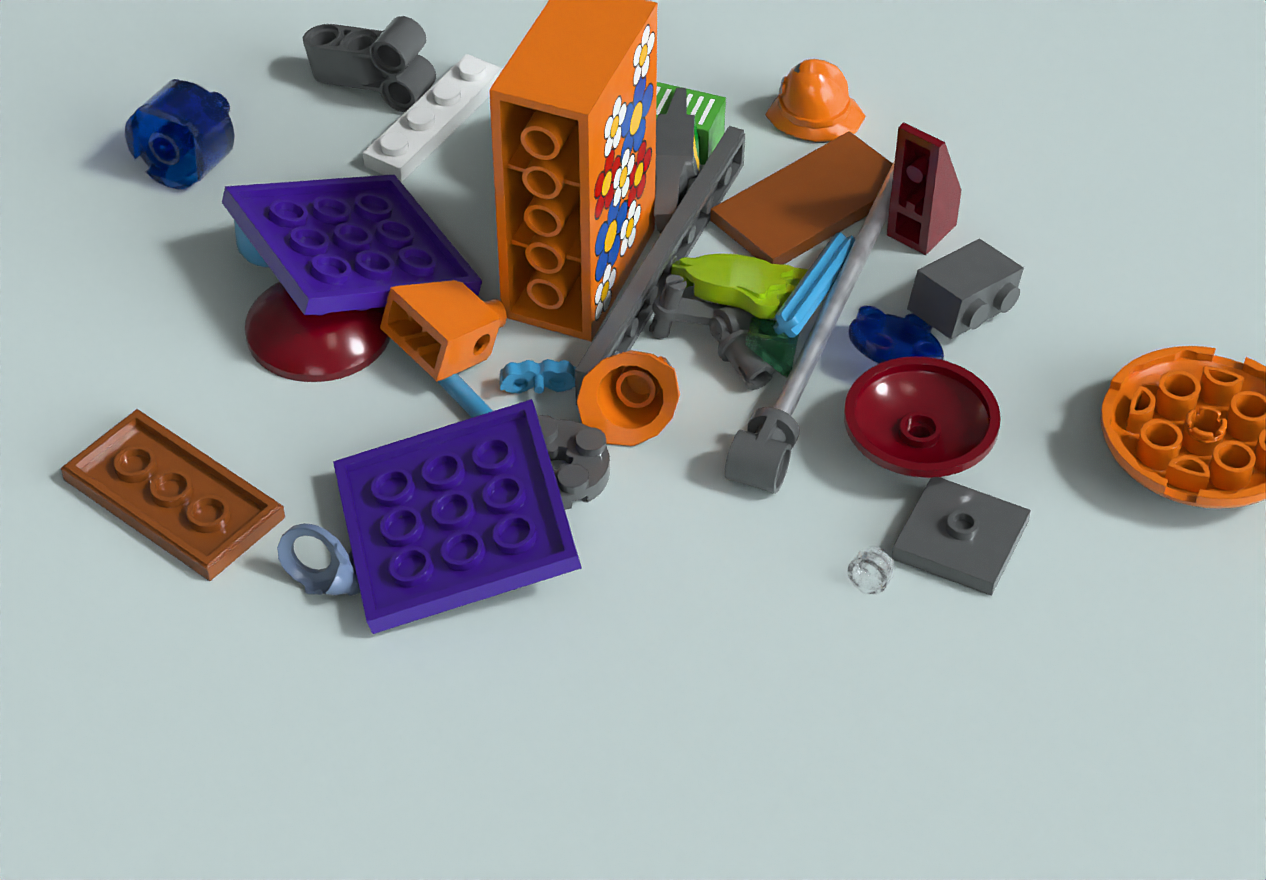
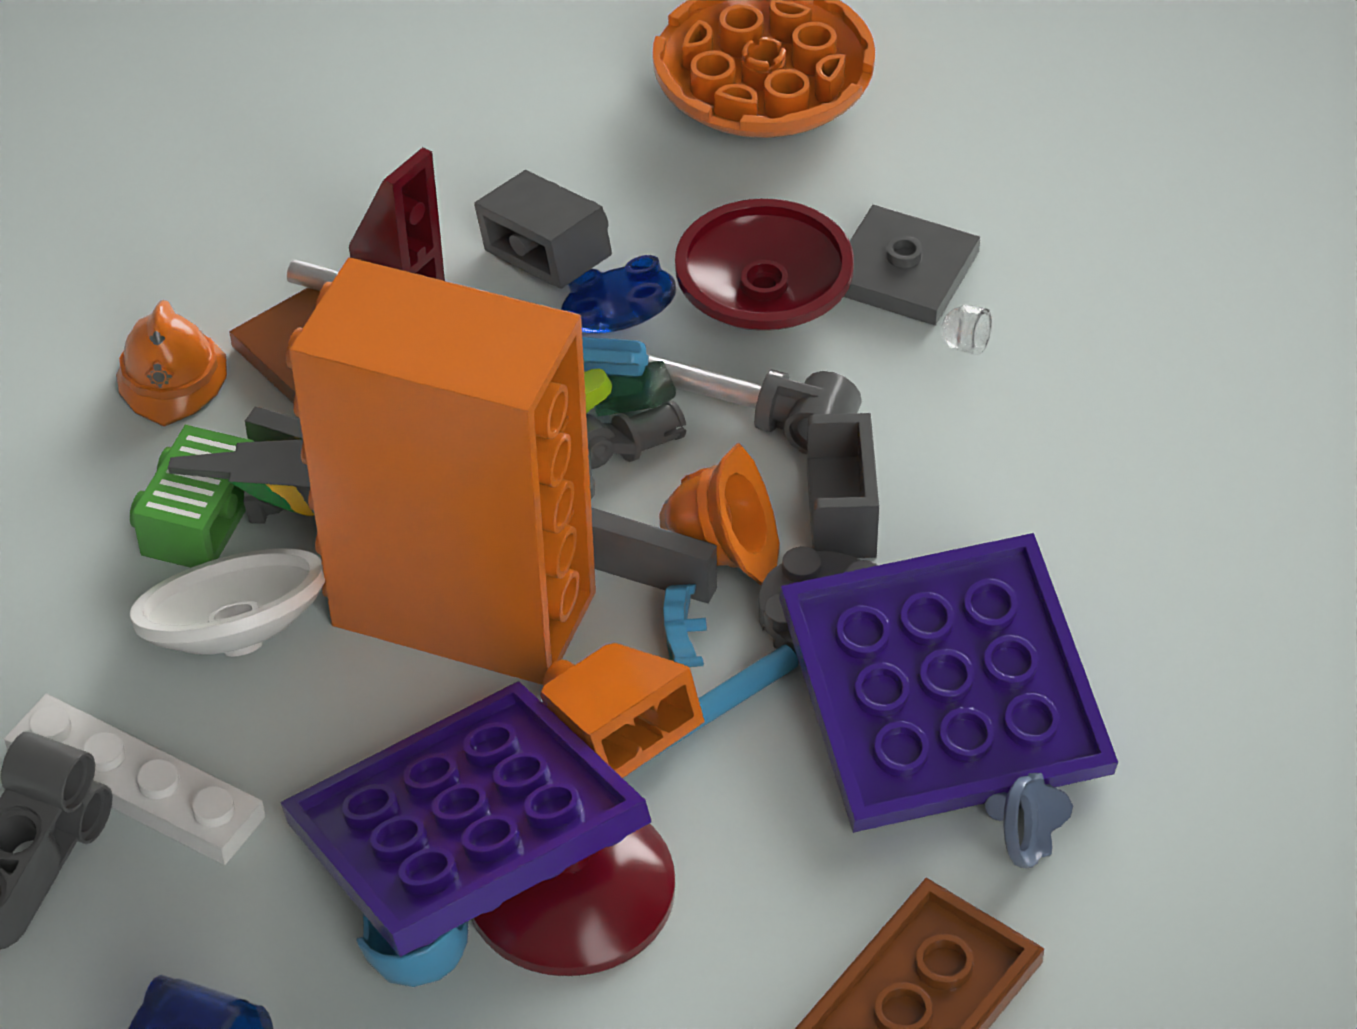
camera: 90 degrees left, 0 degrees up
(672, 478) = (842, 484): none -> dark grey panel

